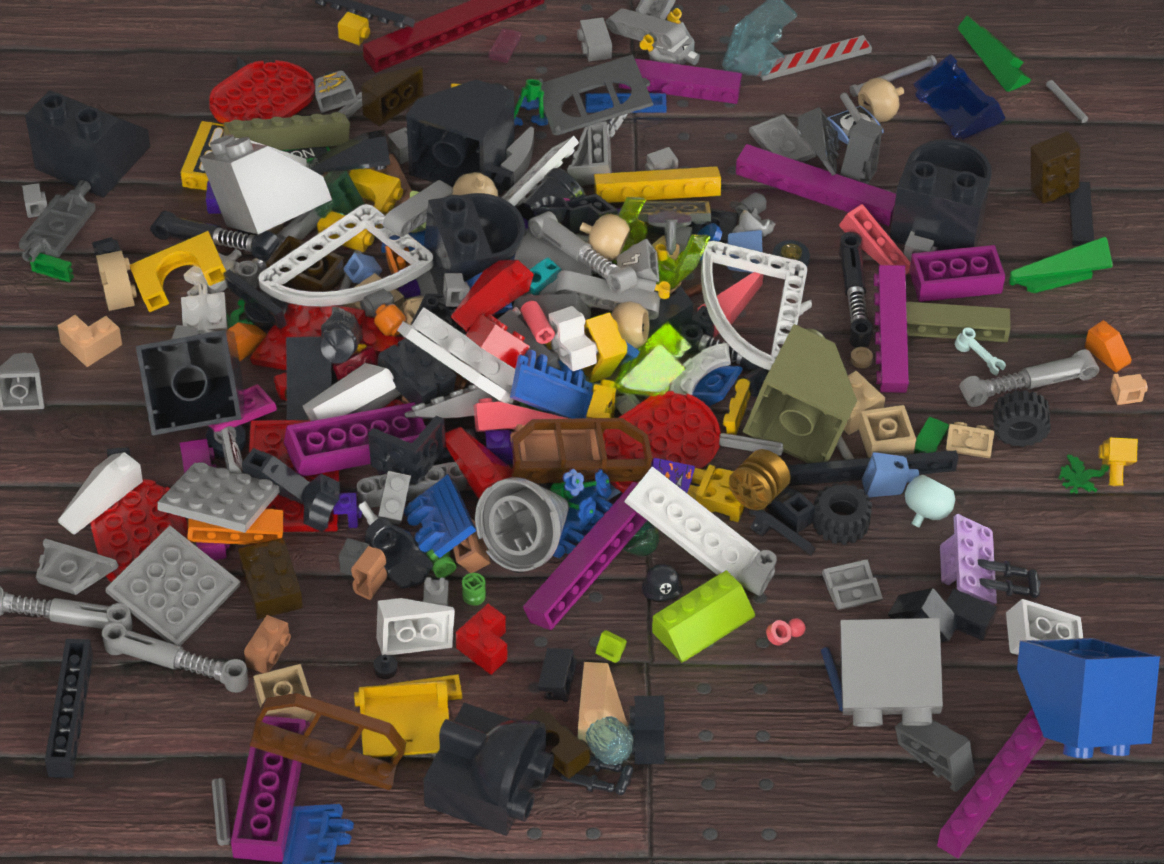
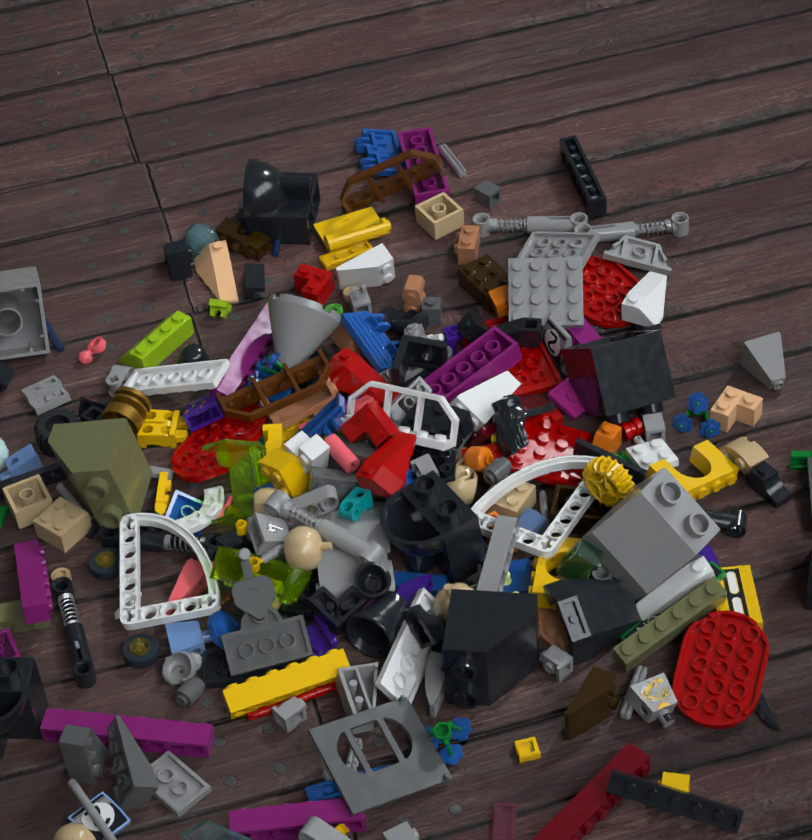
camera: 170 degrees right, 5 degrees down
(125, 354) = (698, 406): none -> blue plant
(204, 725) = (487, 194): none -> dark grey brick
(279, 227) = (607, 480): none -> yellow gear
(511, 179) = (425, 627): none -> black arch
(874, 238) = (68, 686): coral slope -> none

